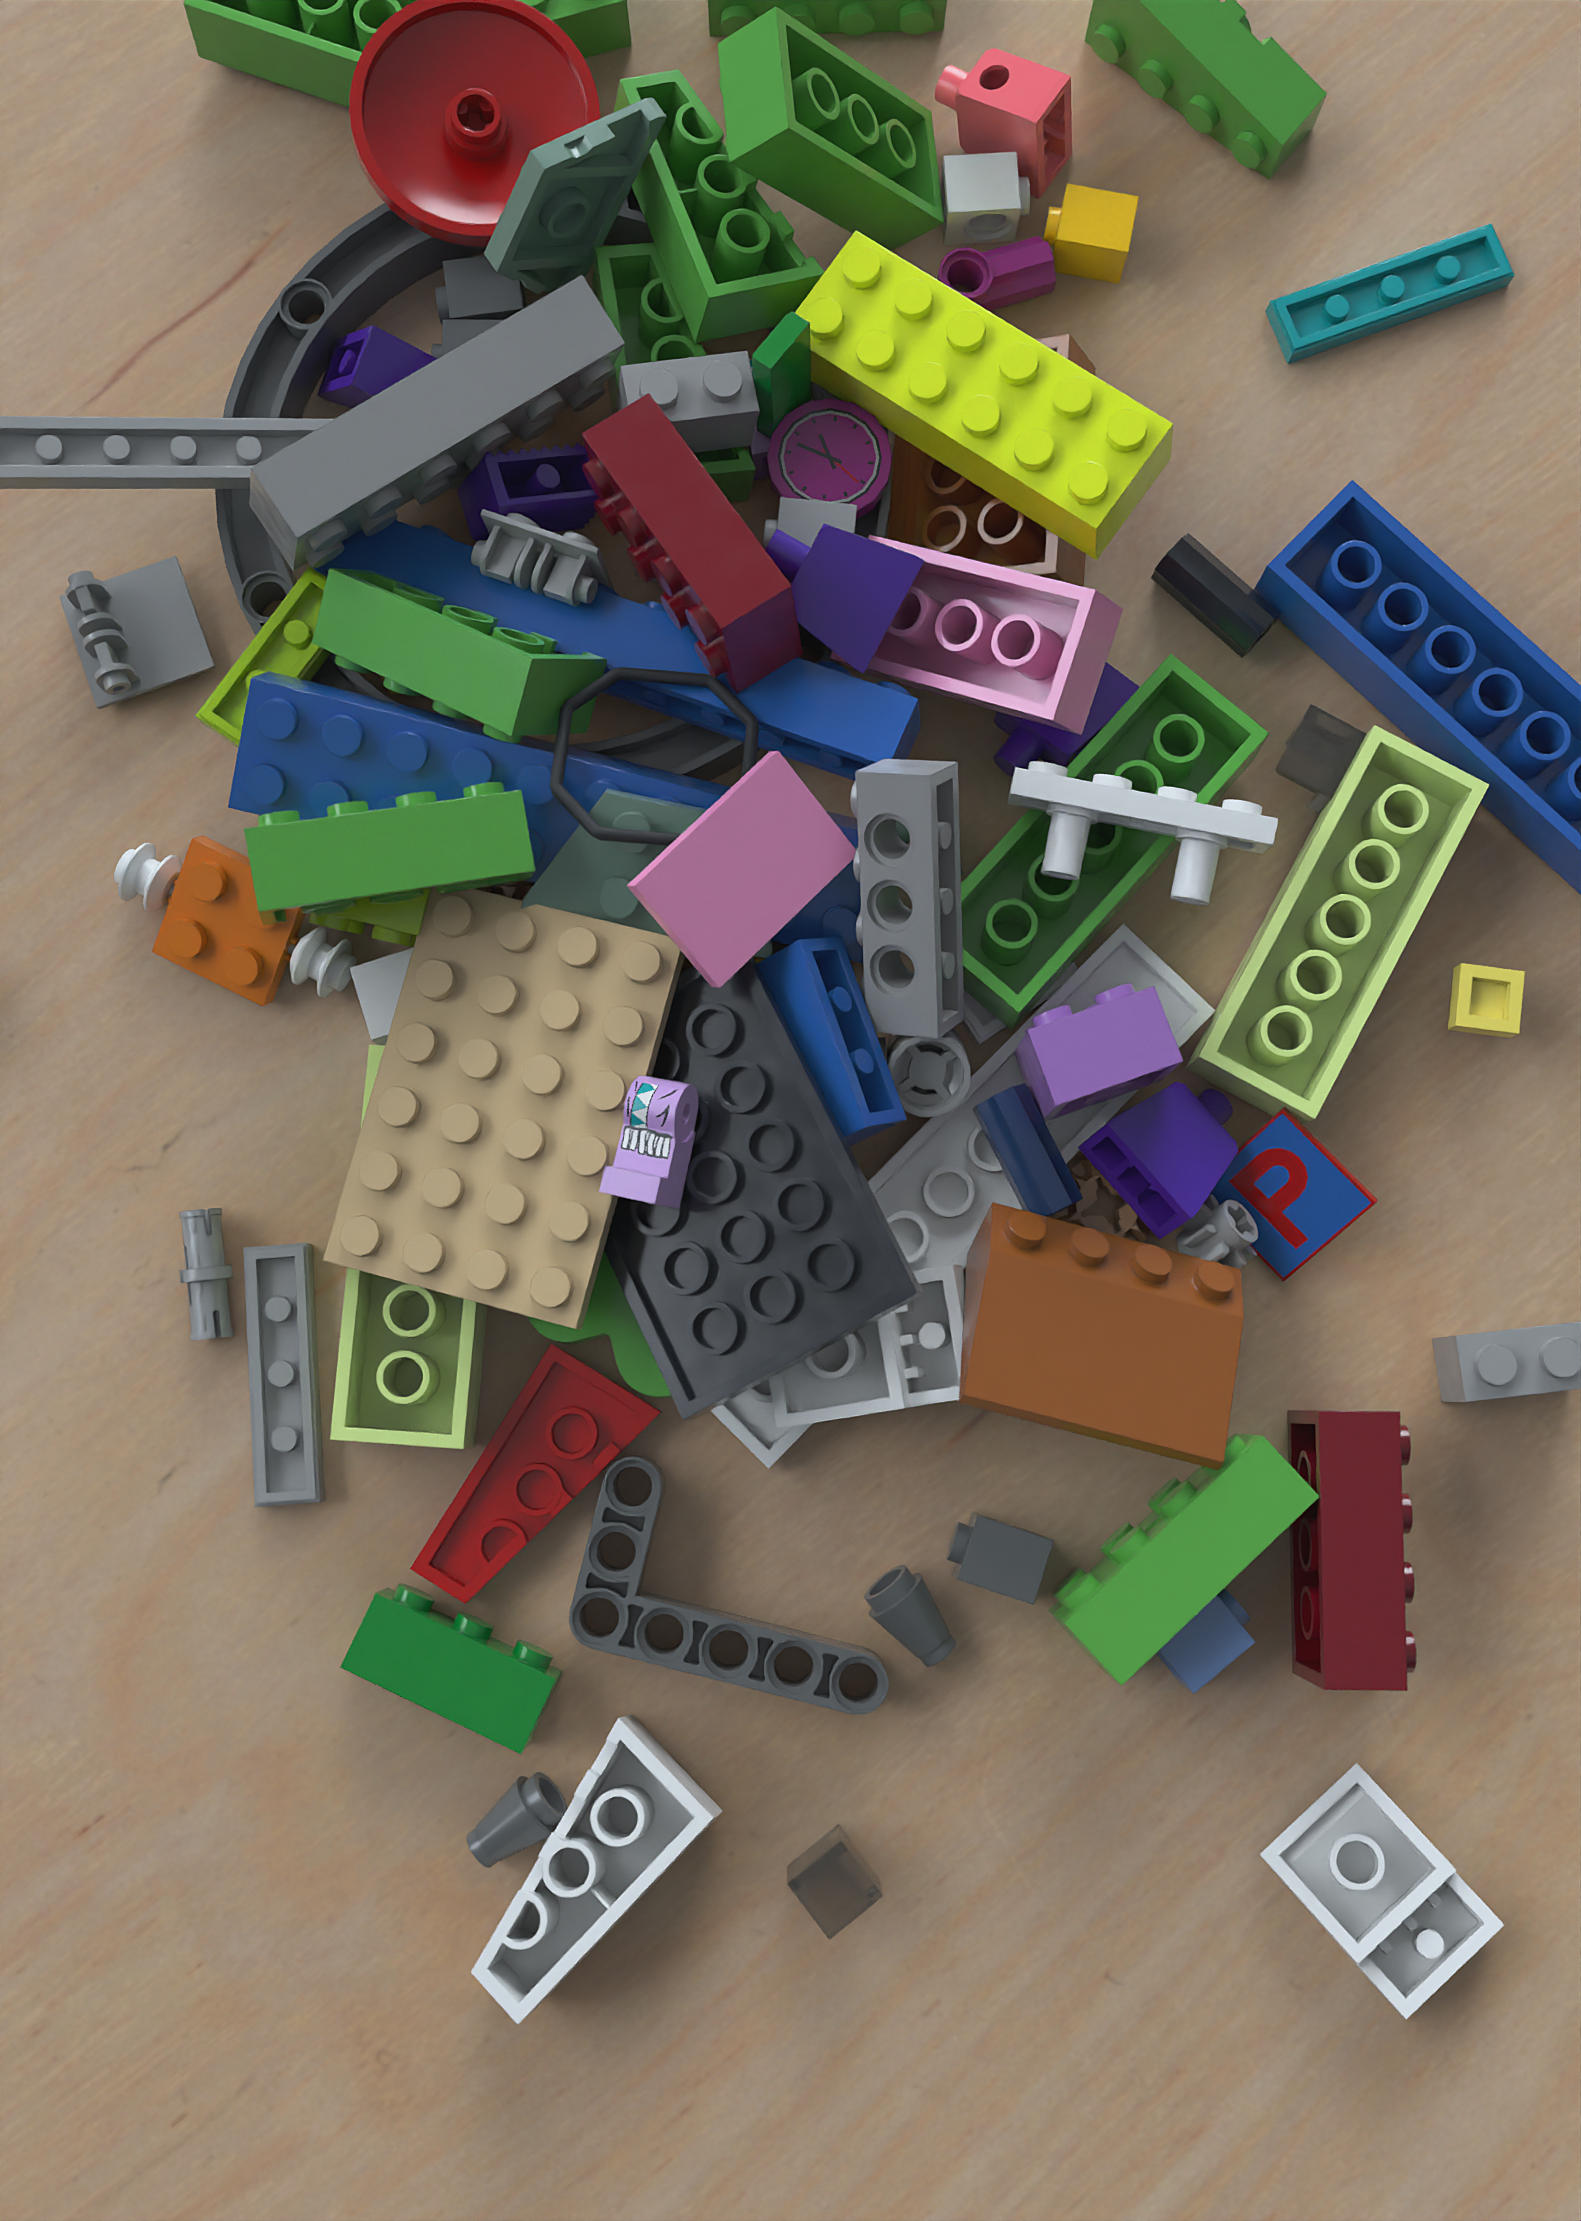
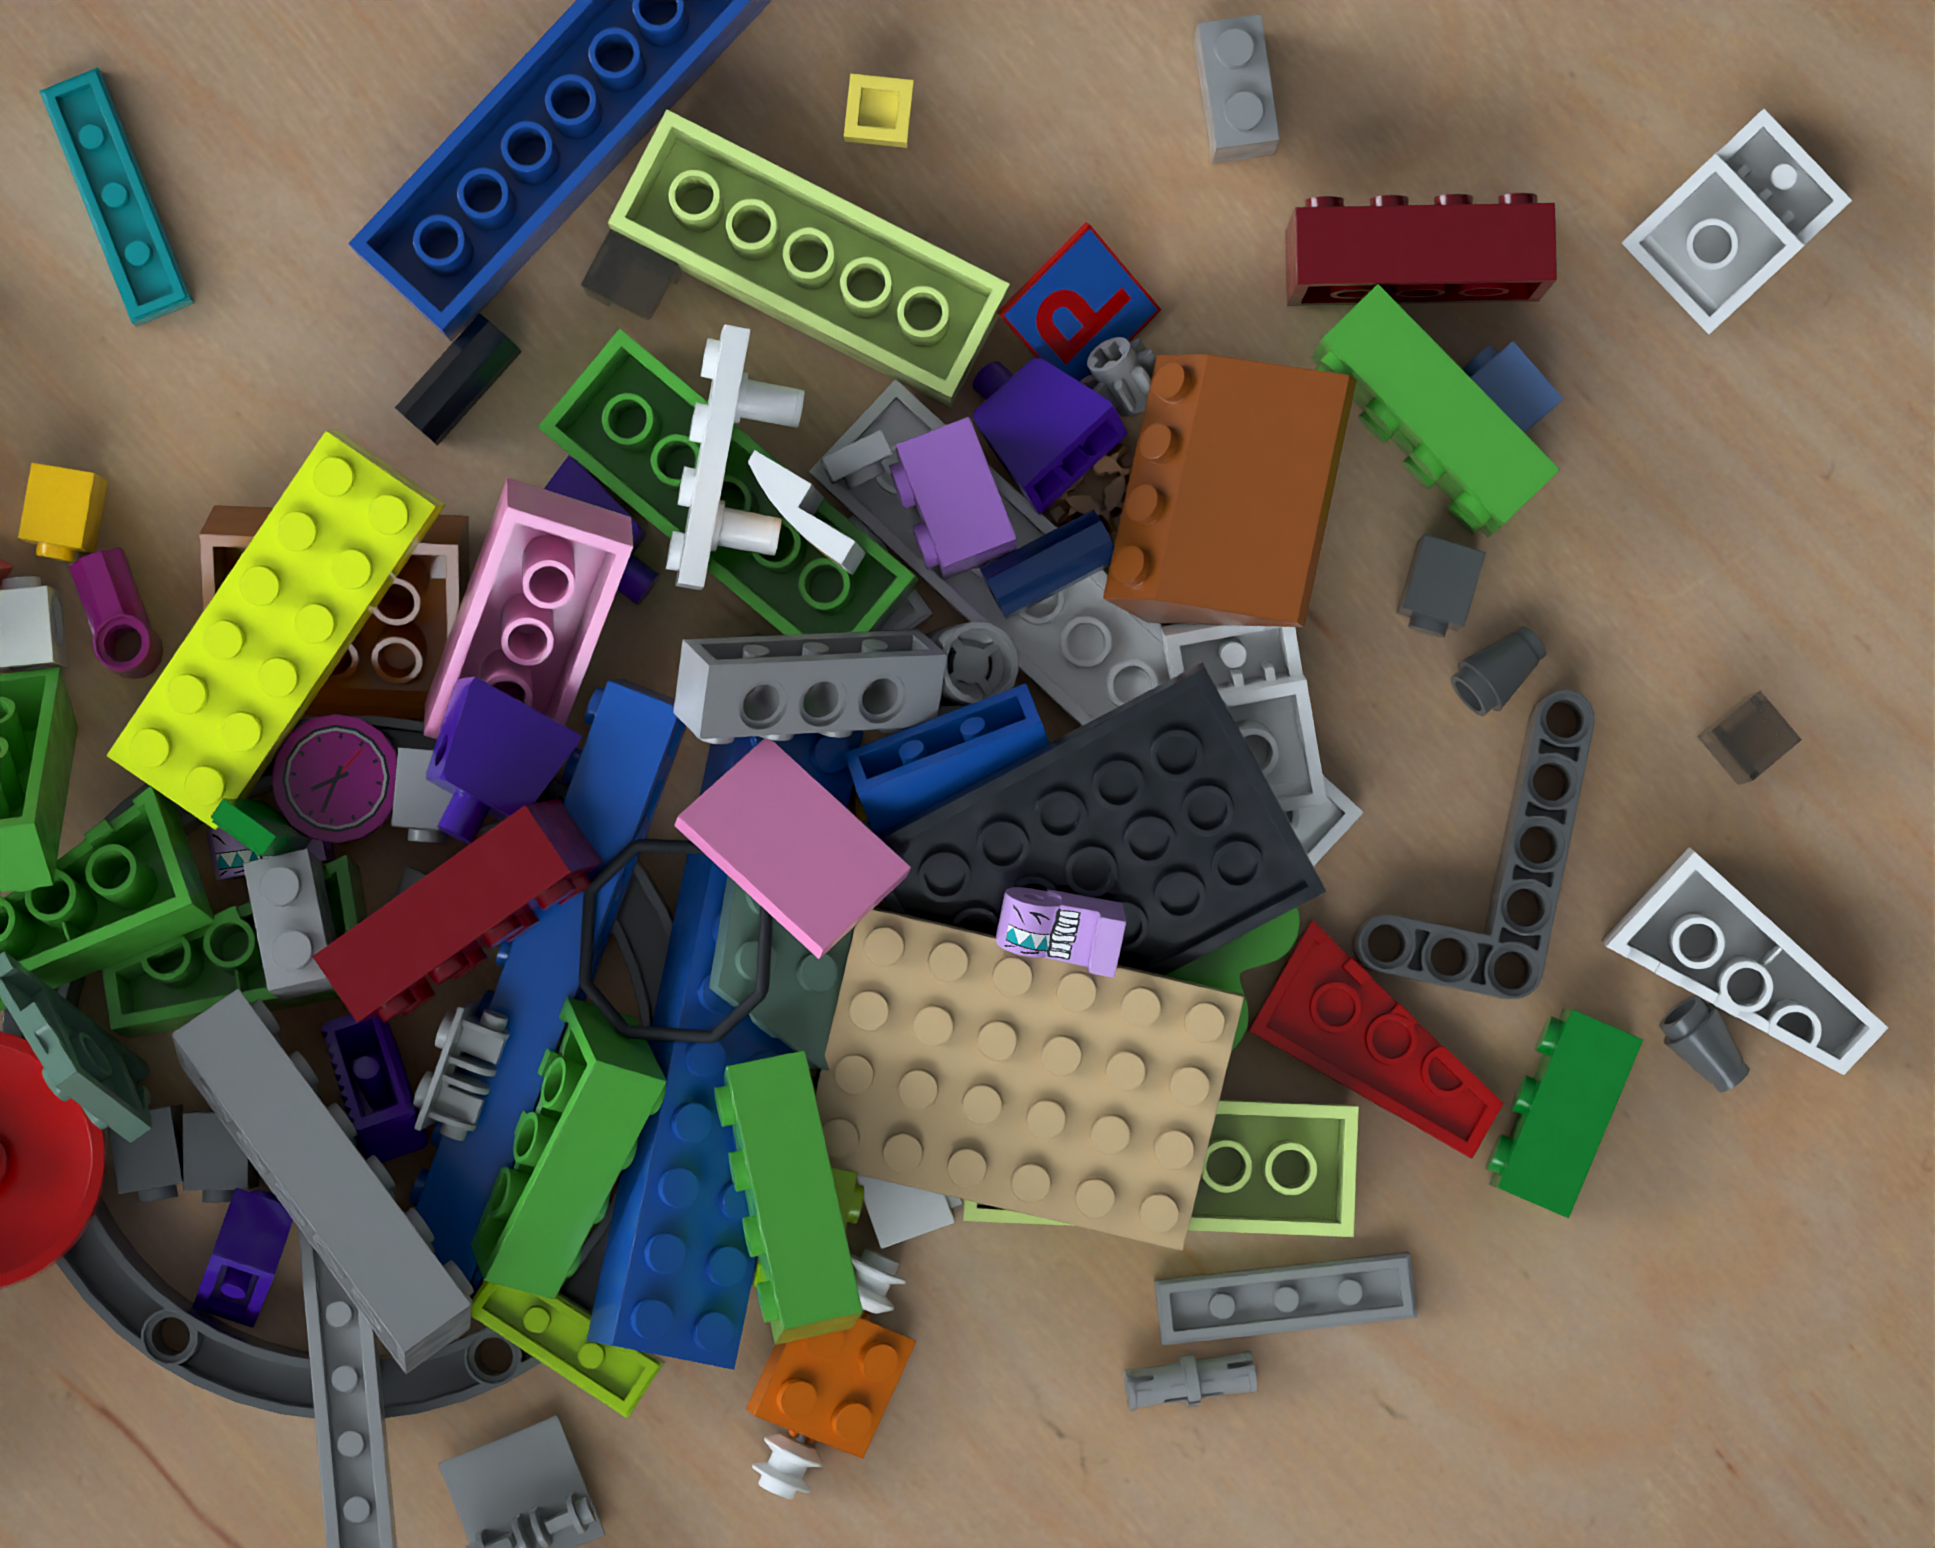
camera: 90 degrees left, 5 degrees up
(1085, 889) = (798, 503): none -> white slope
(1136, 955) = (857, 461): none -> light grey plate

